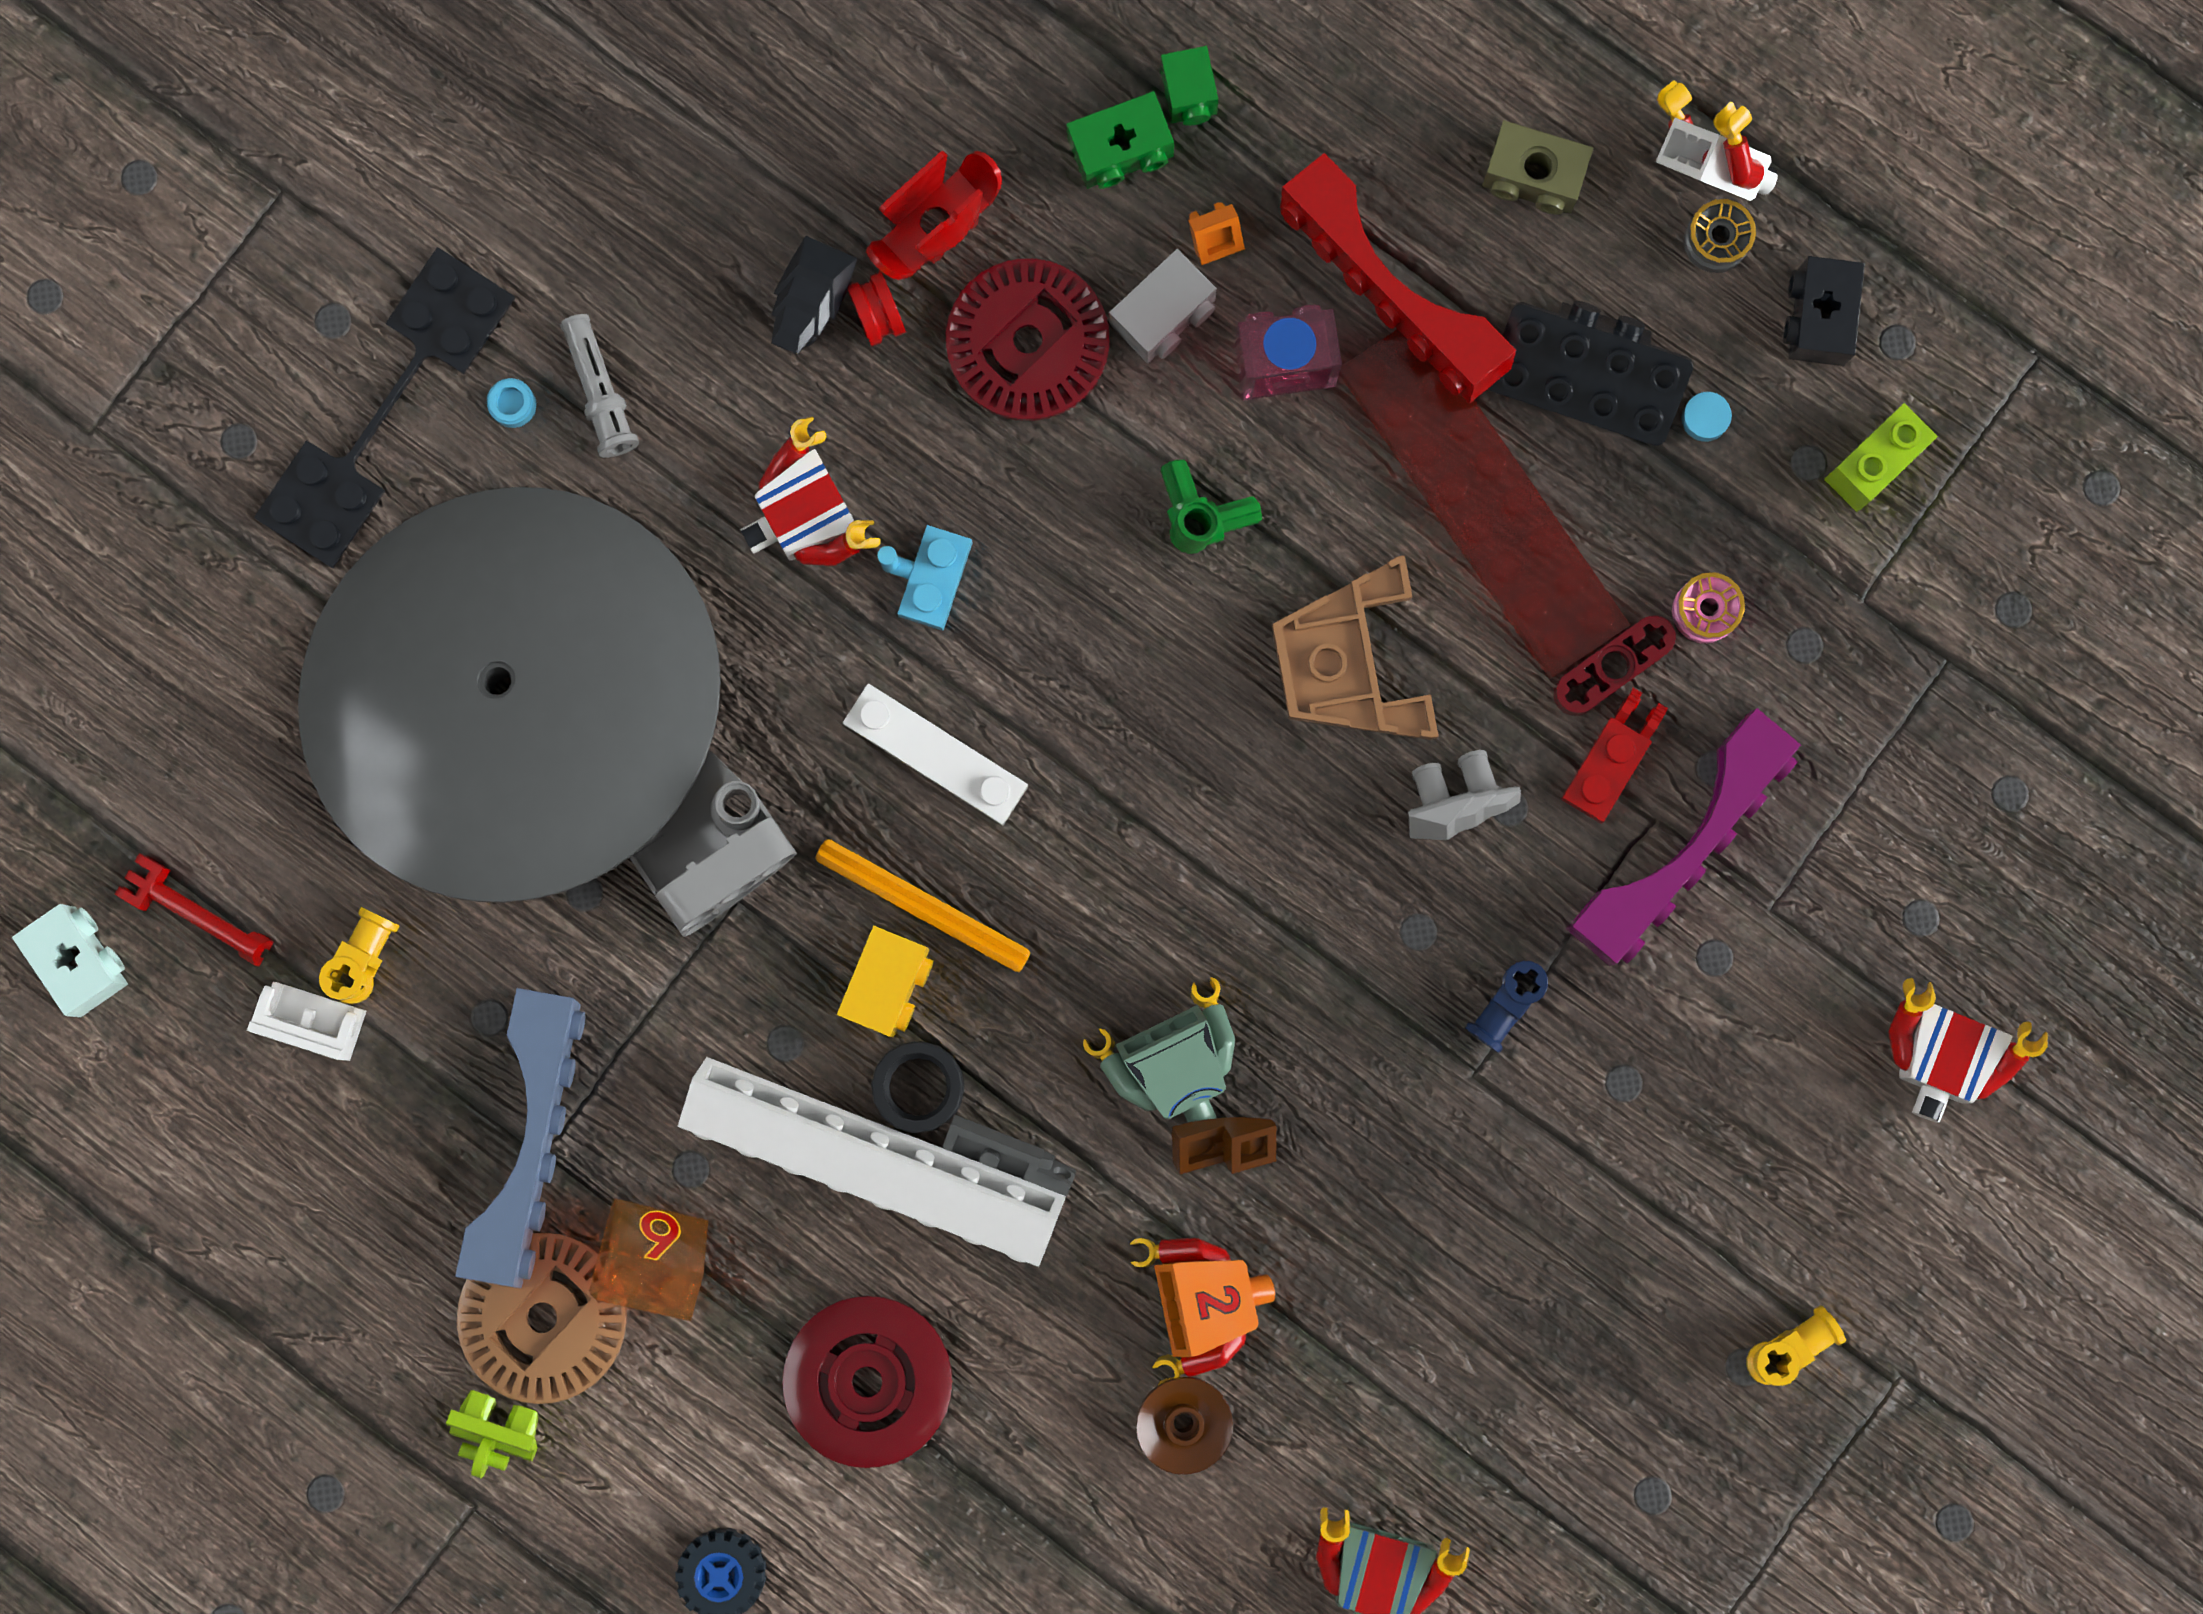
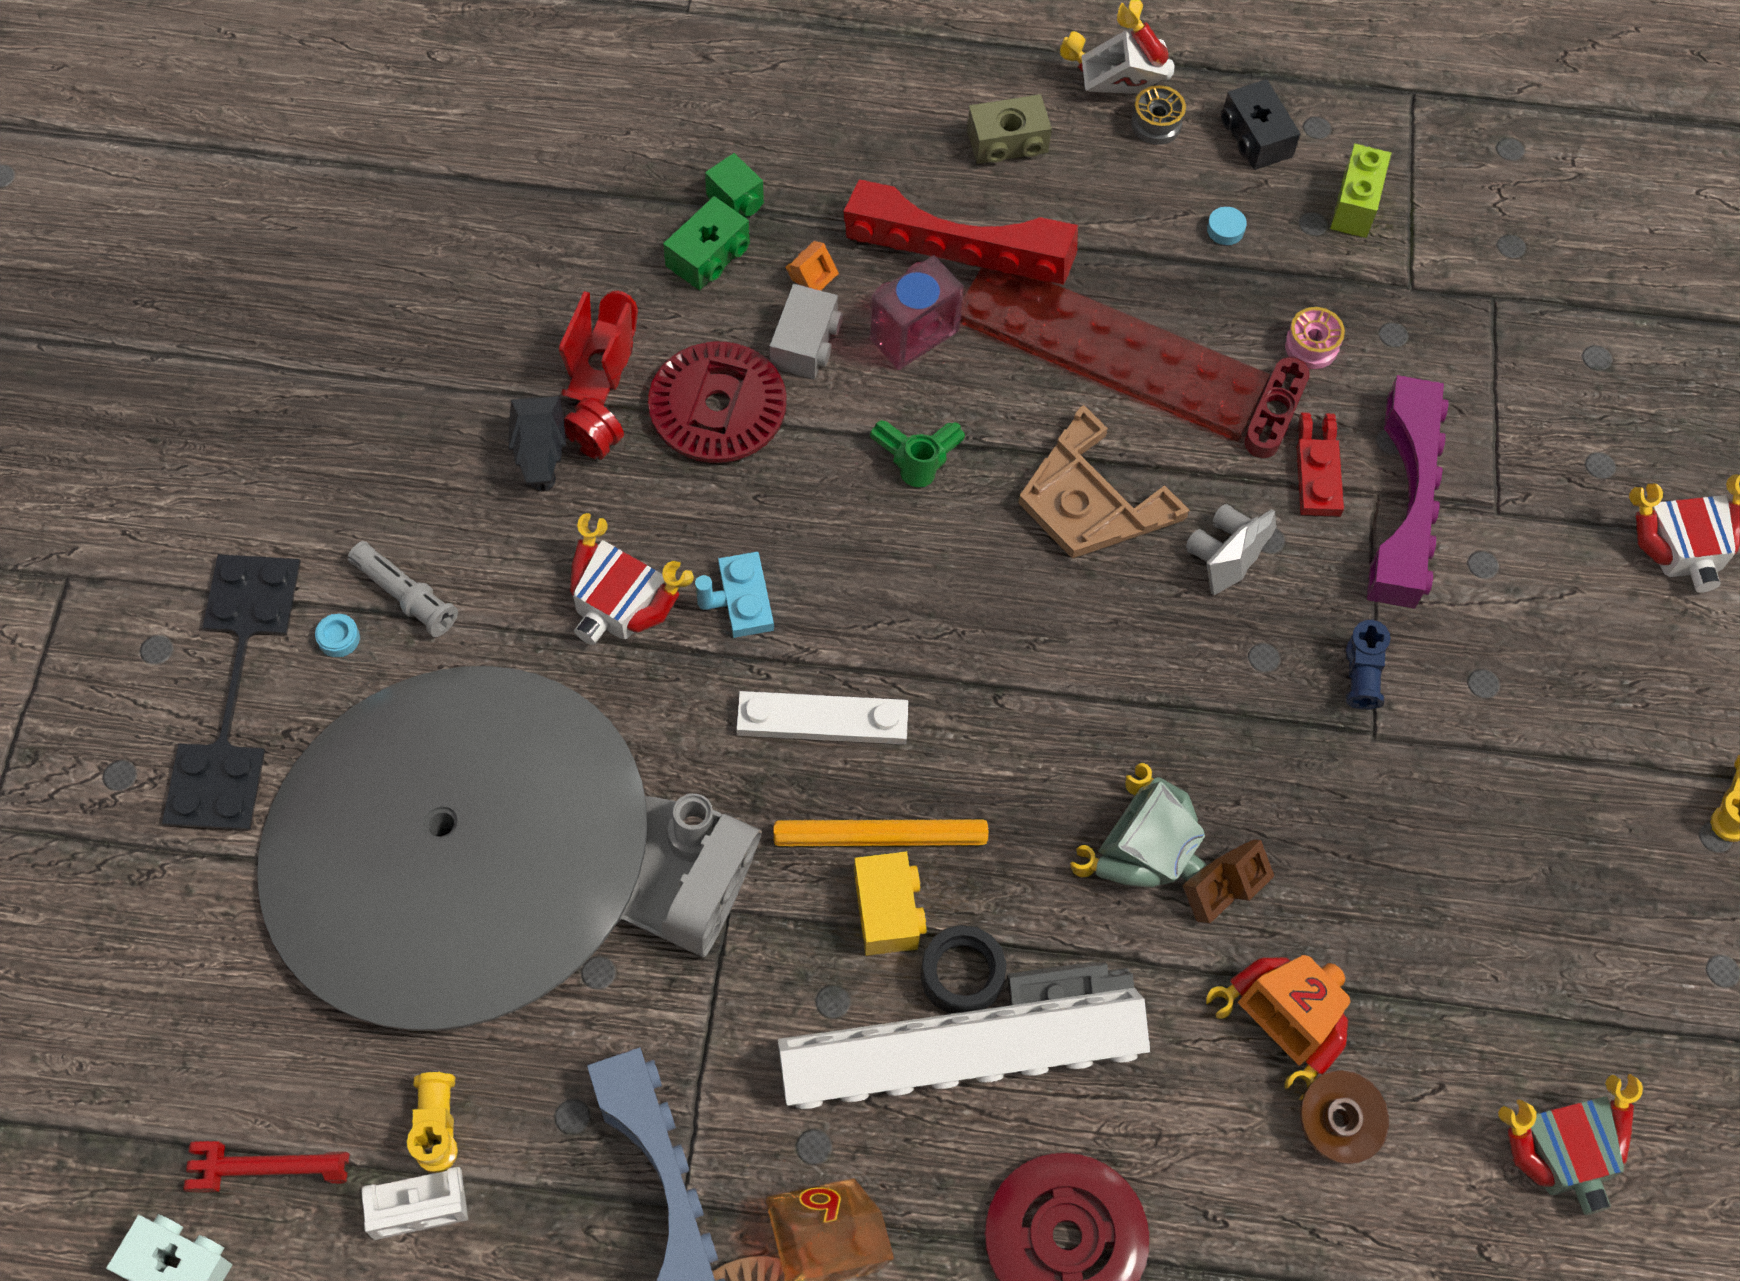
camera: 35 degrees left, 20 degrees down
(1594, 370) = (1136, 229): black bracket -> none

